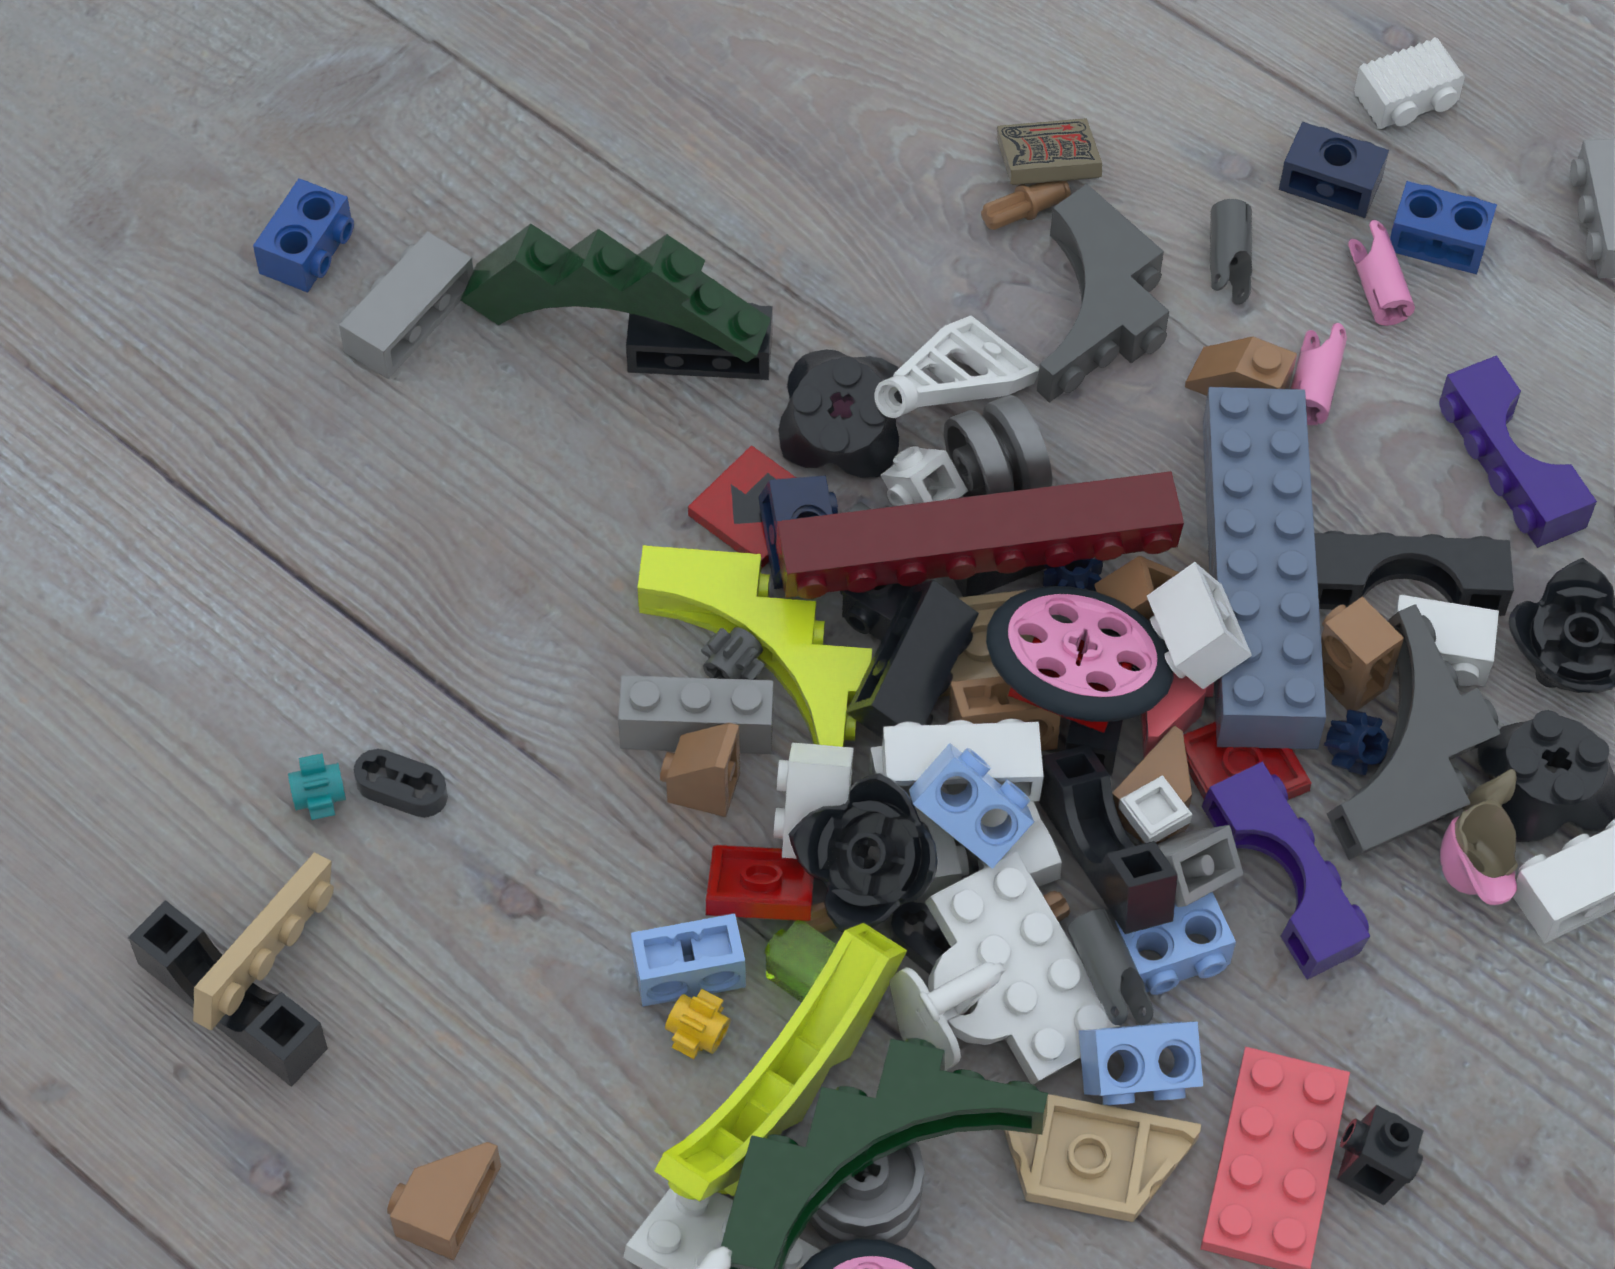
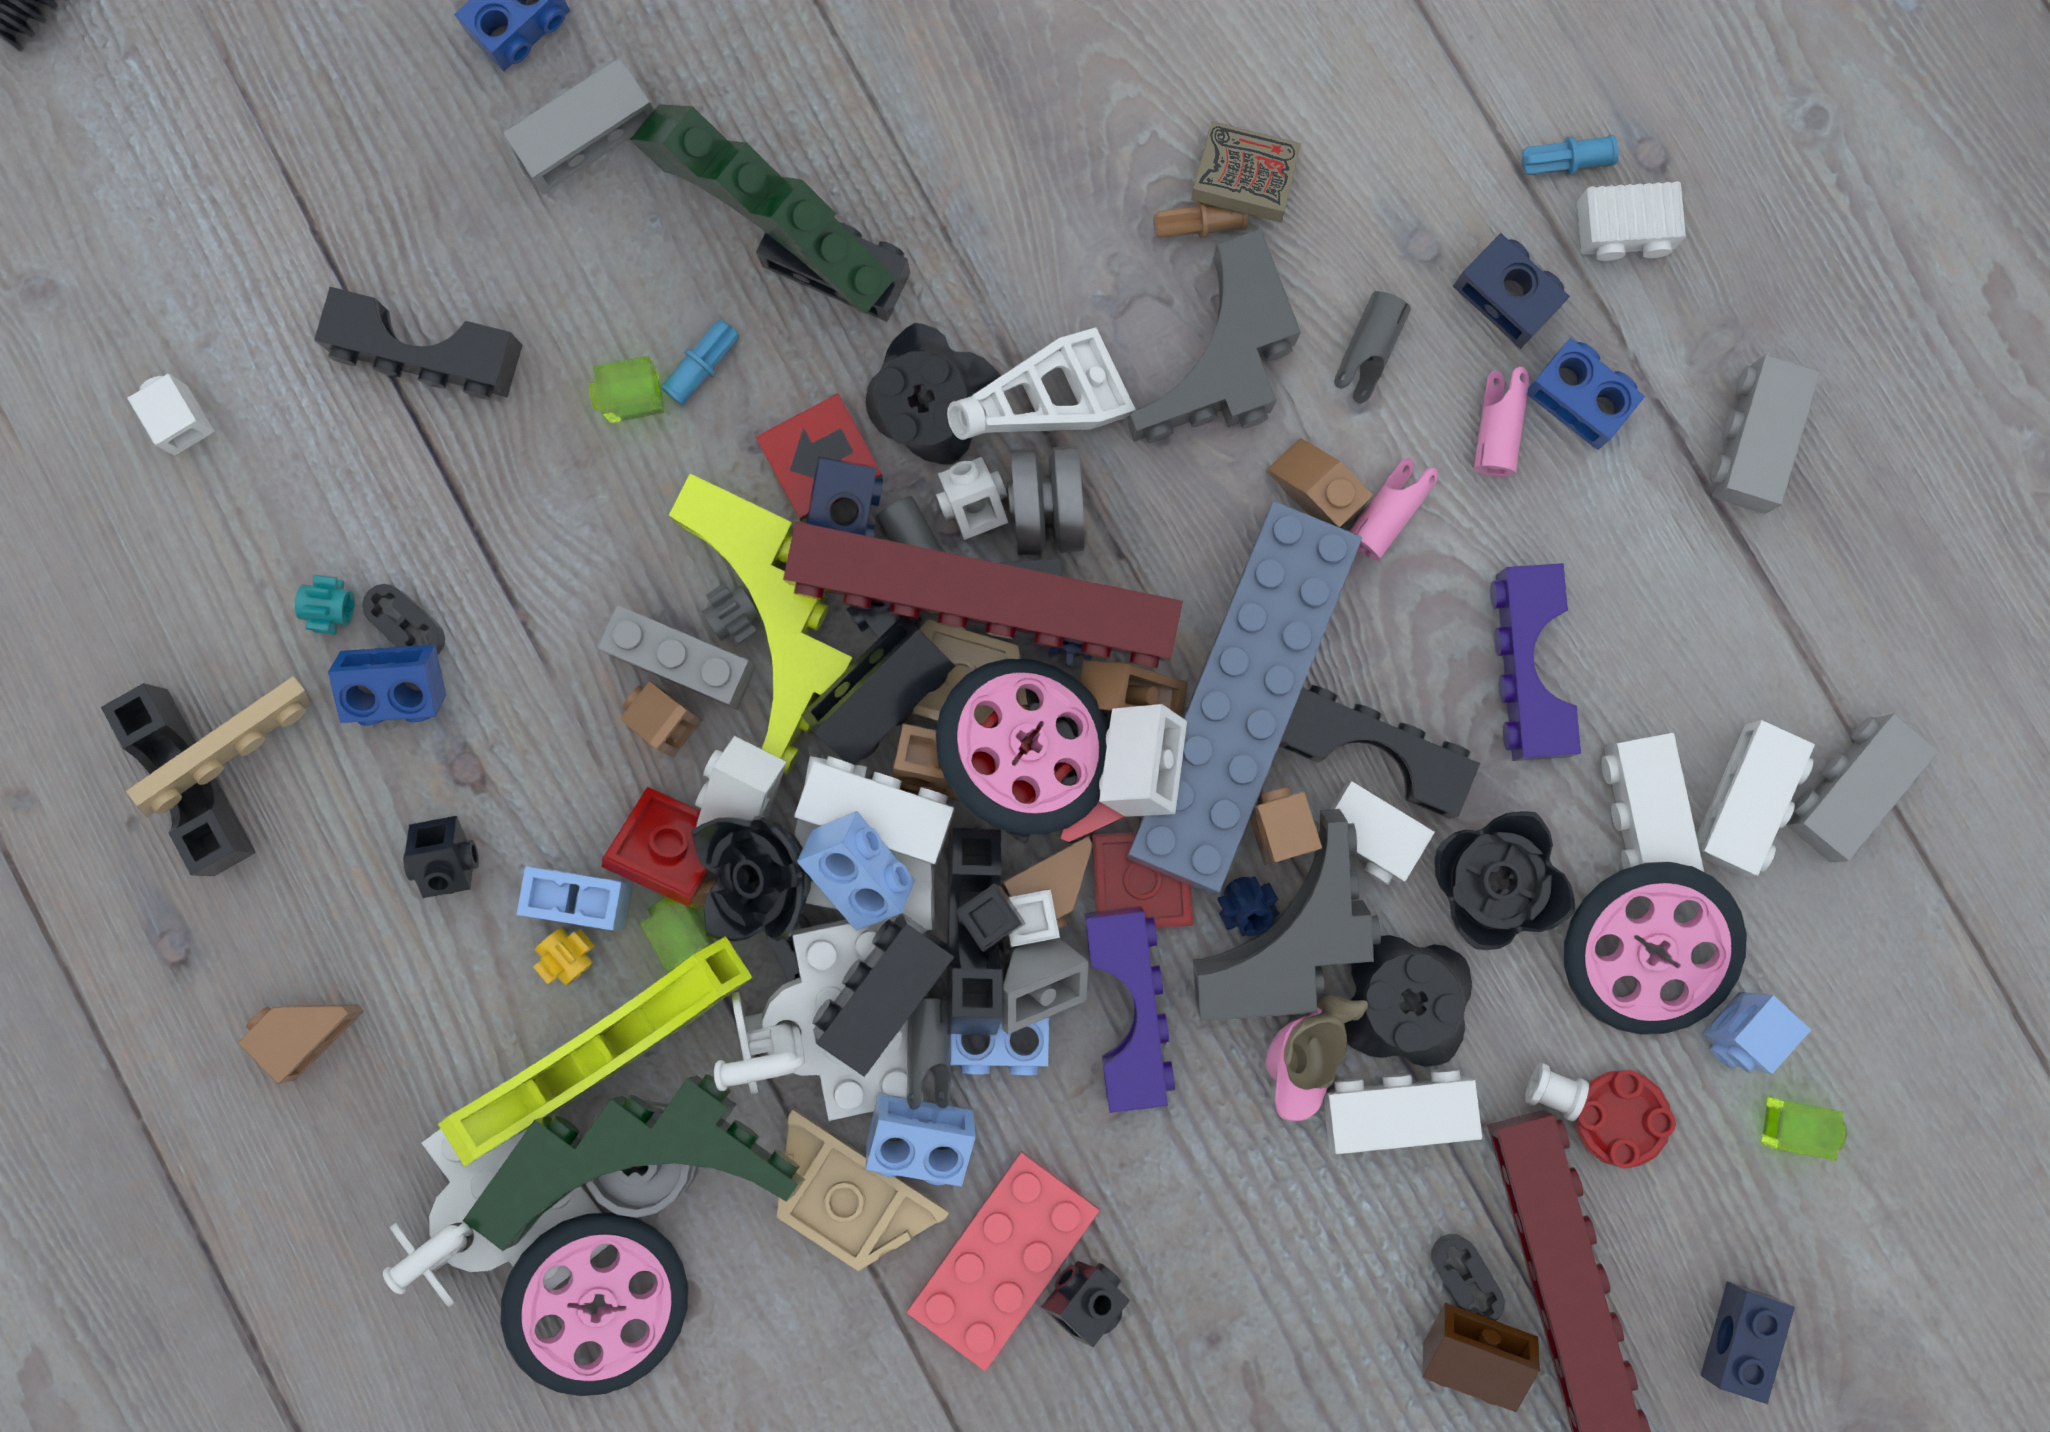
camera: 25 degrees right, 25 degrees up
(90, 671) = (170, 414): none -> white brick
(378, 530) = (473, 357): none -> black arch
(410, 820) = (384, 674): none -> blue brick
(532, 972) = (439, 857): none -> black brick
(546, 504) = (626, 389): none -> clear neon green brick
(605, 464) = (700, 362): none -> dark azure axle
(1044, 912) = (881, 993): none -> black brick
(1117, 815) = (990, 917): none -> black tile
(1330, 55) = (1570, 155): none -> dark azure axle

